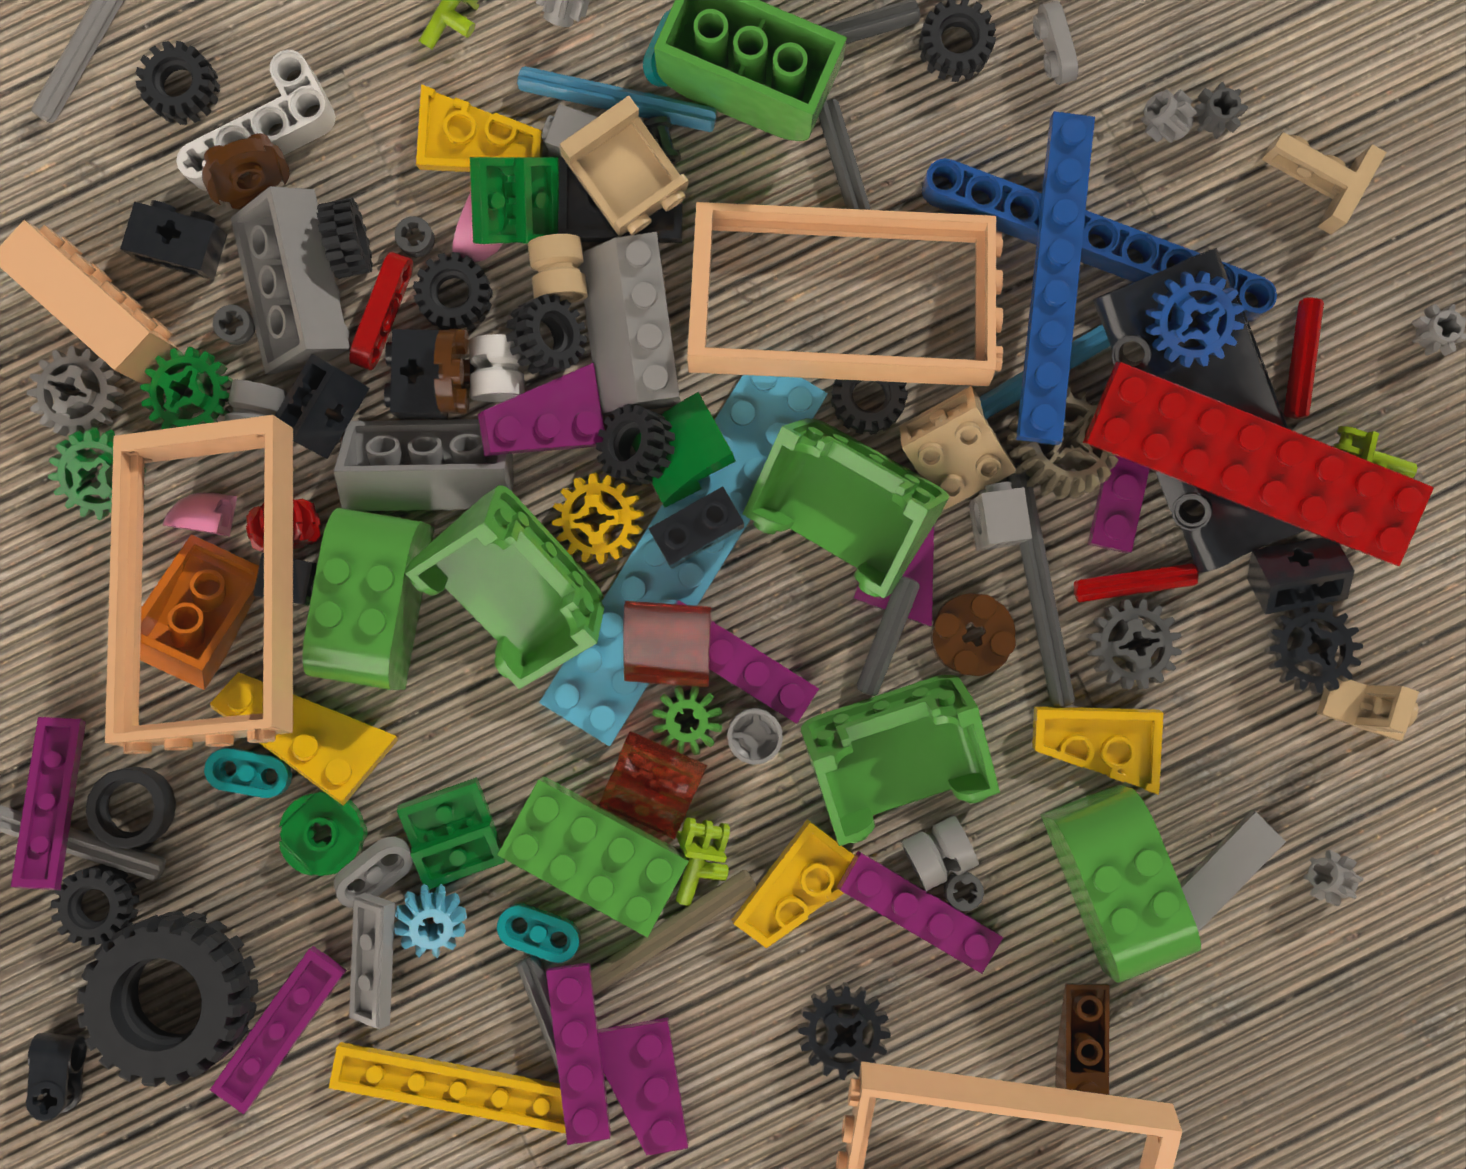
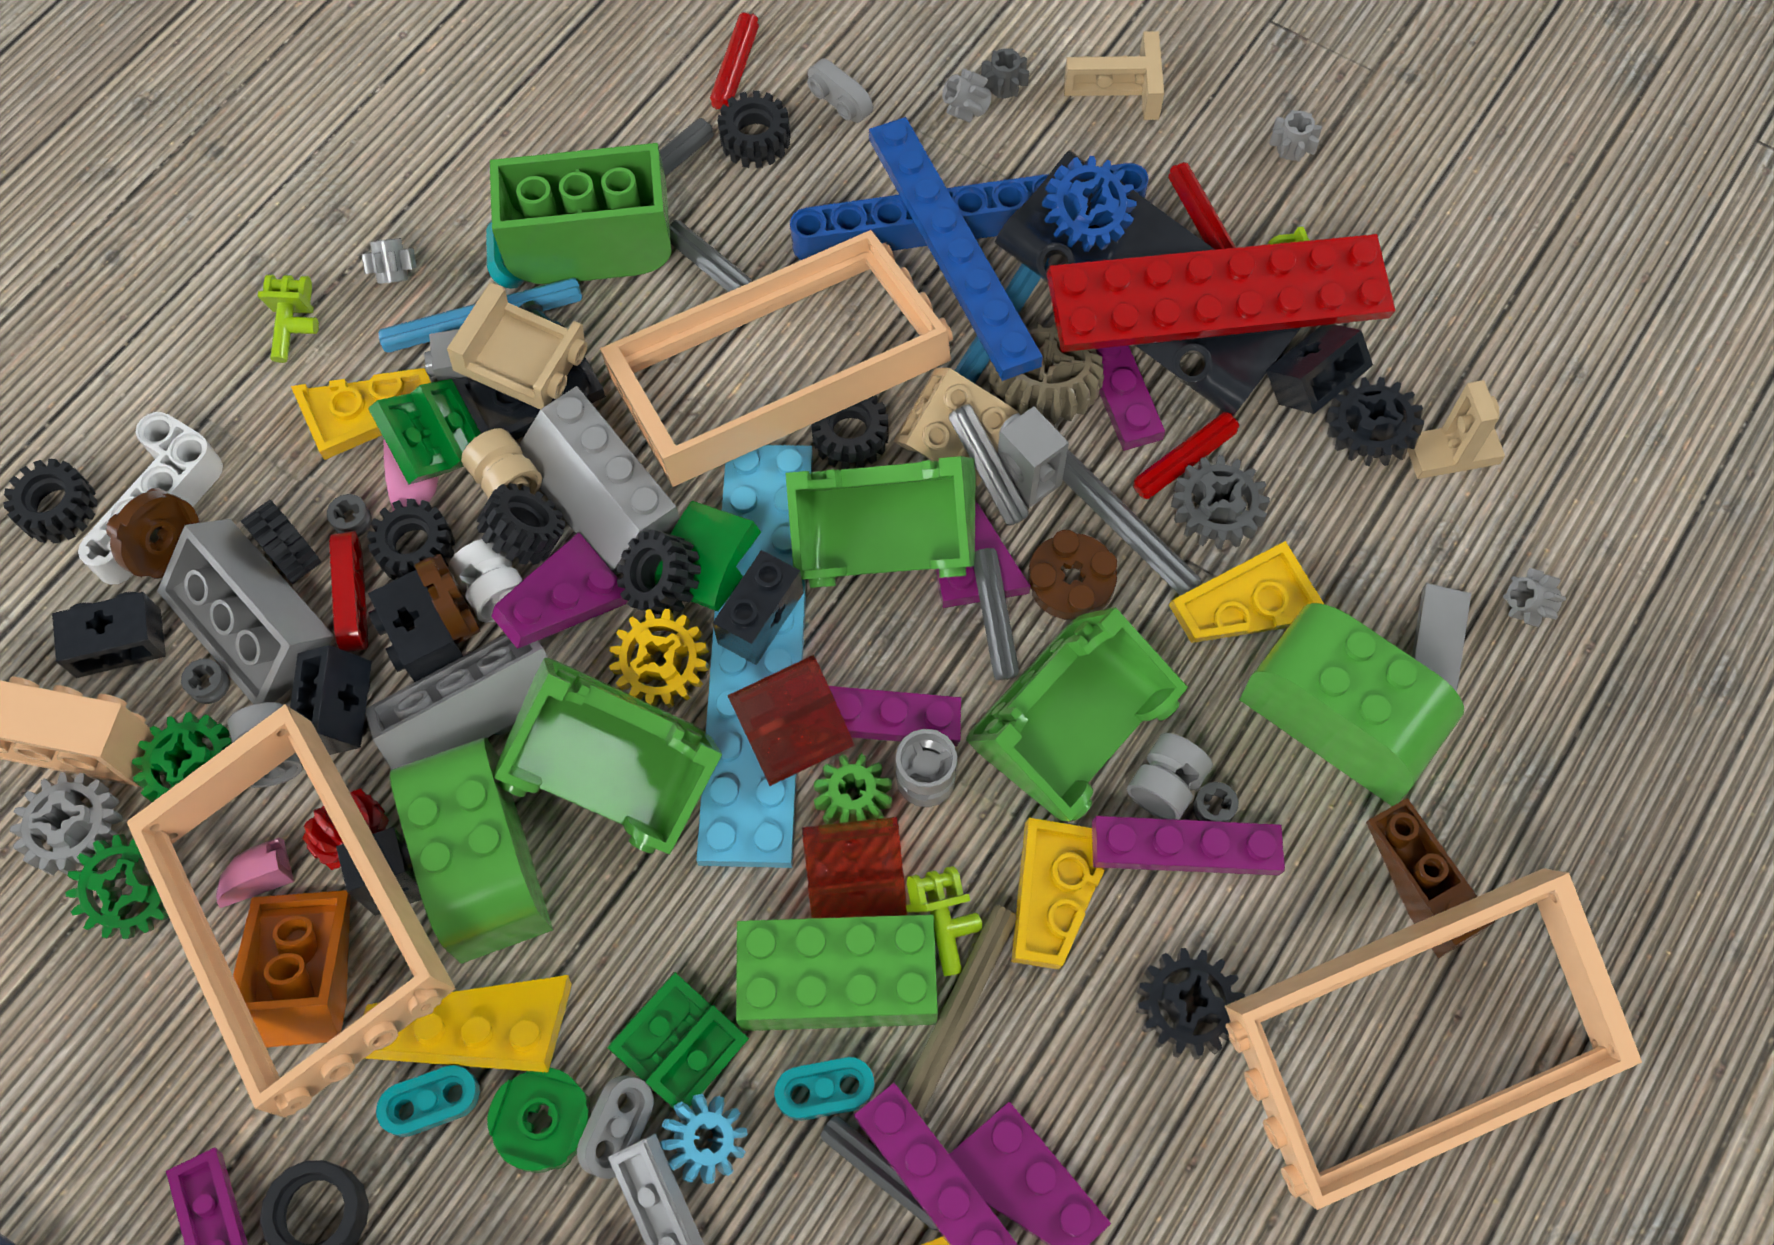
camera: 30 degrees left, 20 degrees down
(960, 503) = (988, 464): none -> axle

